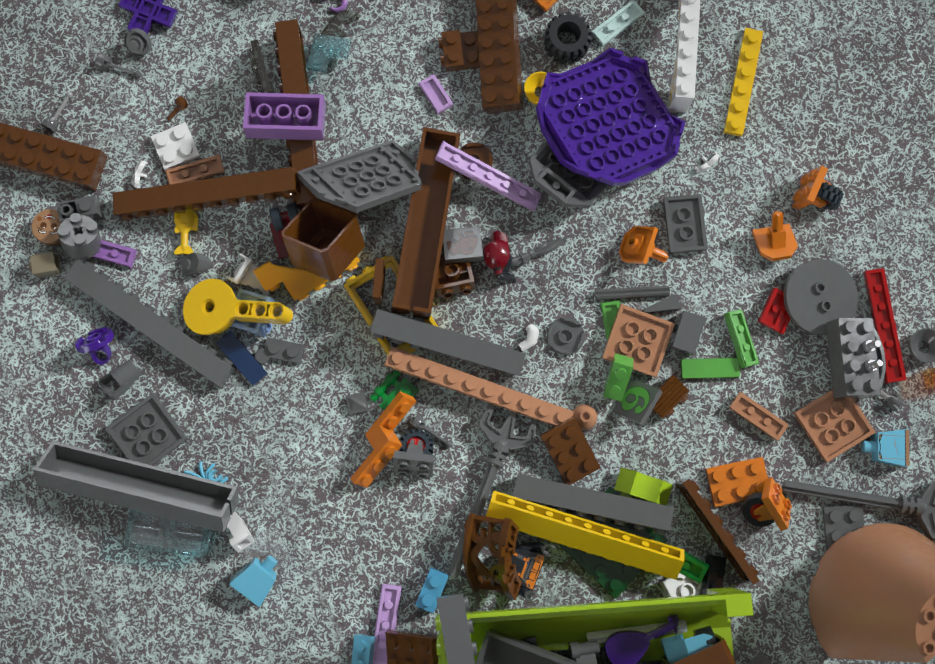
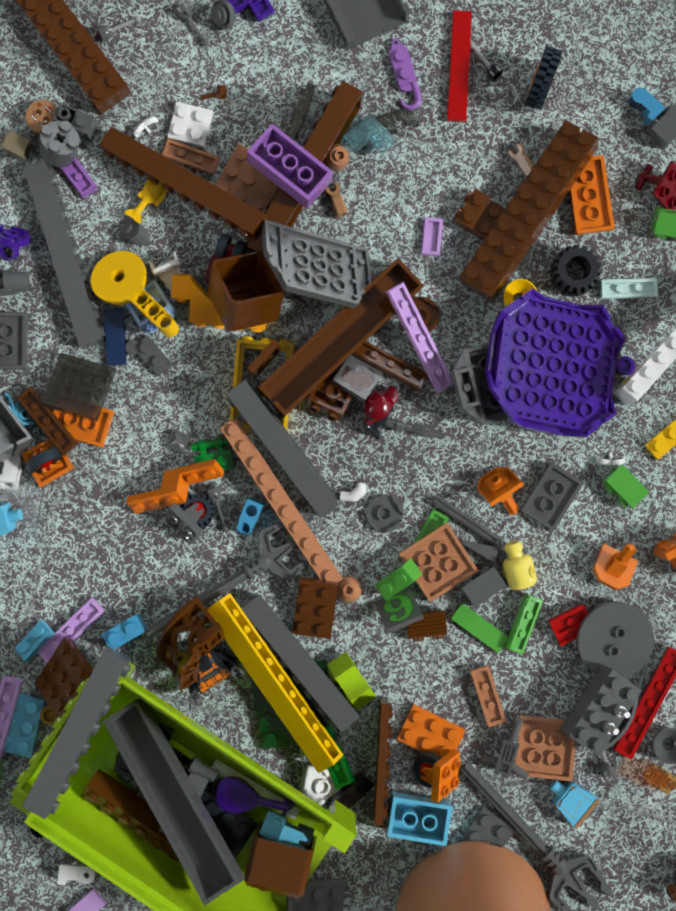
camera: 45 degrees right, 5 degrees up
(238, 466) = (47, 421): none -> reddish brown tile
(242, 419) = (78, 386): none -> clear smoke plate
(255, 154) = (246, 181): none -> nougat plate
(262, 500) = (46, 463): none -> orange plate
(265, 446) = (86, 429): none -> orange plate
(315, 85) = (332, 159): none -> nougat cone
(340, 121) = (337, 201): none -> medium nougat bar
(461, 419) = (249, 516): none -> dark azure leg
(481, 216) = (390, 365): none -> reddish brown tile
(661, 83) = (624, 366): none -> dark purple tile
(703, 297) = (518, 568): none -> light yellow piece
(734, 174) = (624, 486): none -> bright green brick
(782, 555) = (419, 818): none -> medium azure brick
(810, 449) = (508, 753): none -> dark grey piece

